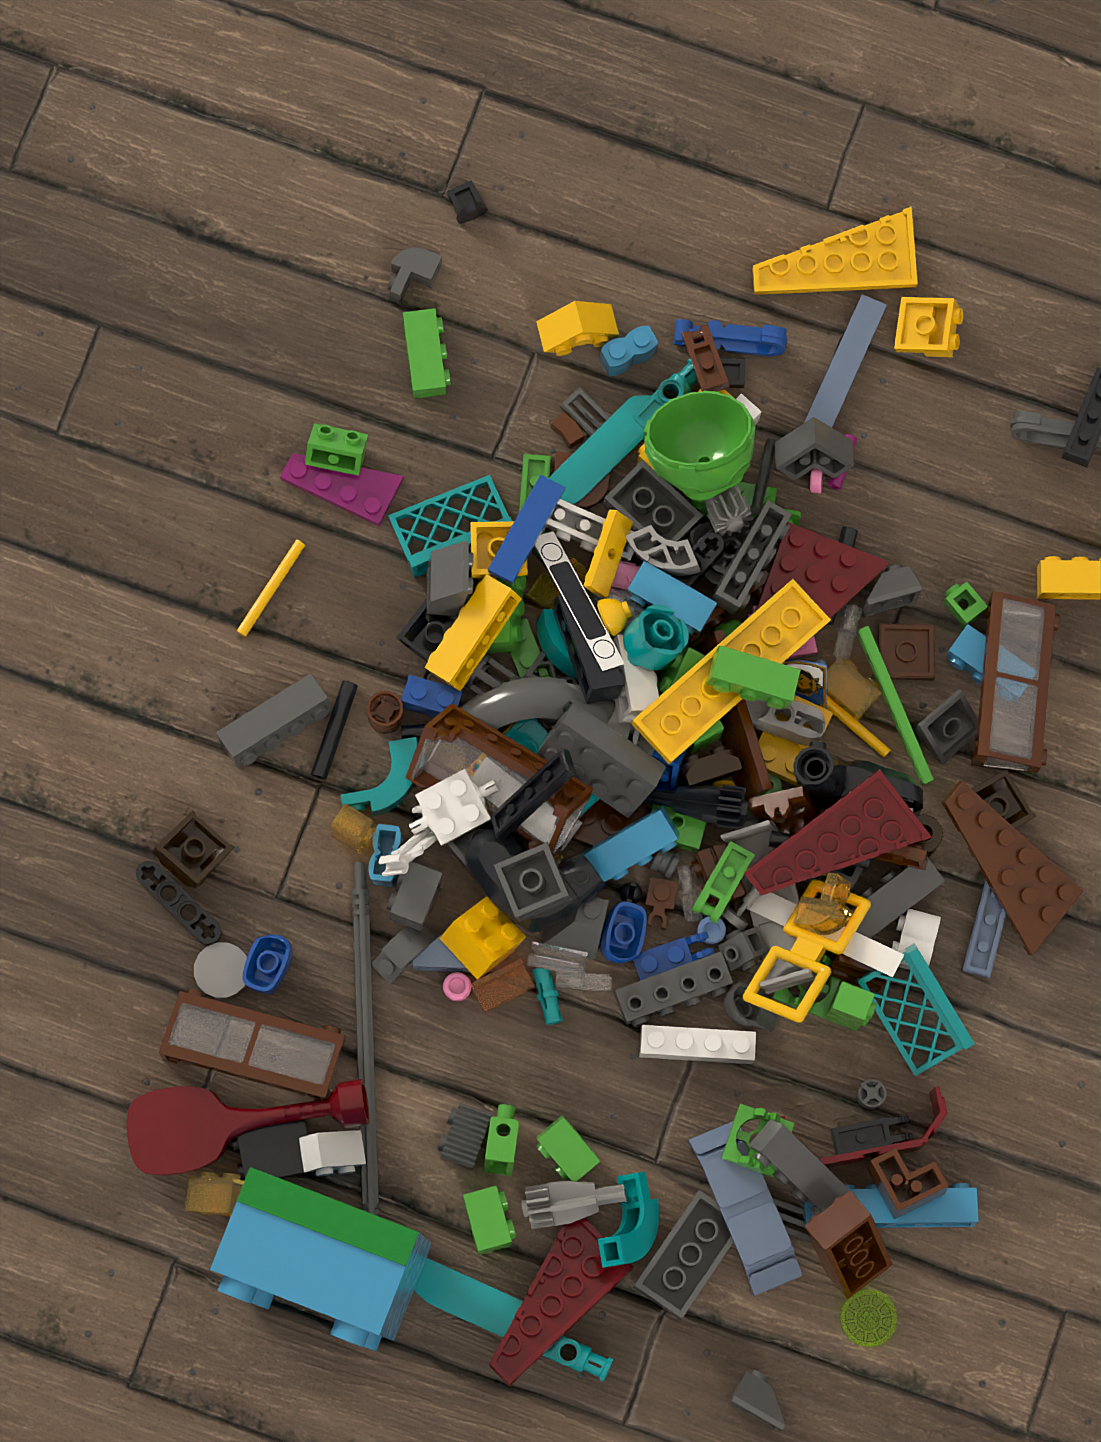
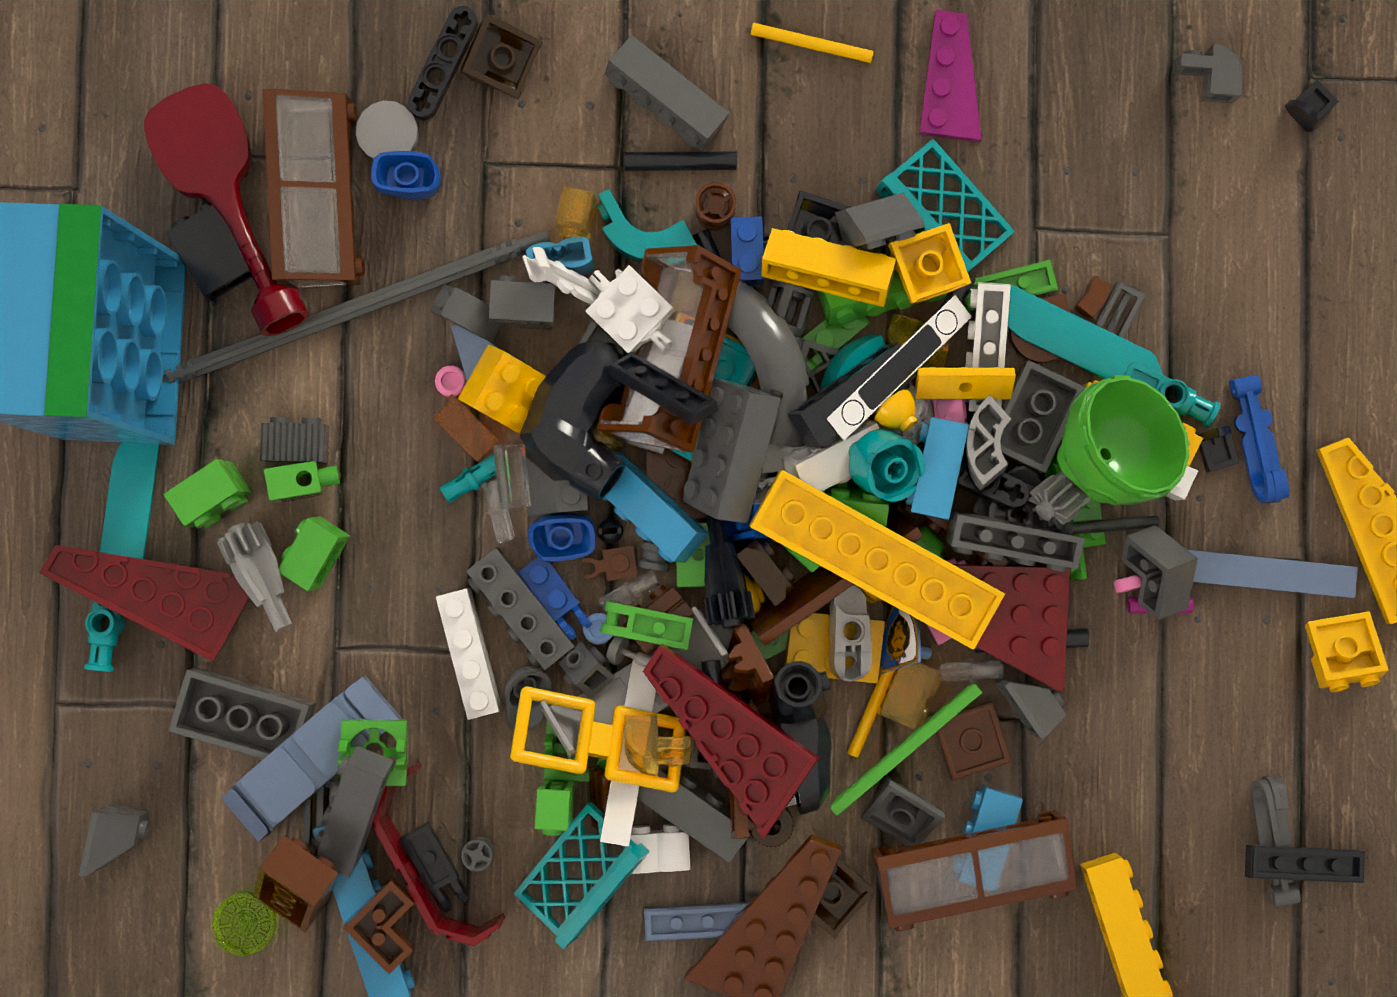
camera: 75 degrees right, 10 degrees up
(212, 1194) = (145, 203): clear yellow brick -> none
(332, 1151) = (226, 307): white brick -> none
(336, 449) = (985, 57): bright green brick -> none
(426, 353) = (1126, 117): bright green brick -> none
(526, 529) = (960, 285): blue tile -> none
(532, 882) = (563, 419): dark grey brick -> none
(576, 326) = (1213, 268): yellow brick -> none
(635, 348) = (1209, 340): dark azure brick -> none
(637, 1226) = (250, 653): teal arch -> none
(705, 359) = (1222, 419): reddish brown plate -> none
(753, 677) = (874, 586): bright green brick -> none
(975, 605) = (1047, 799): bright green brick -> none

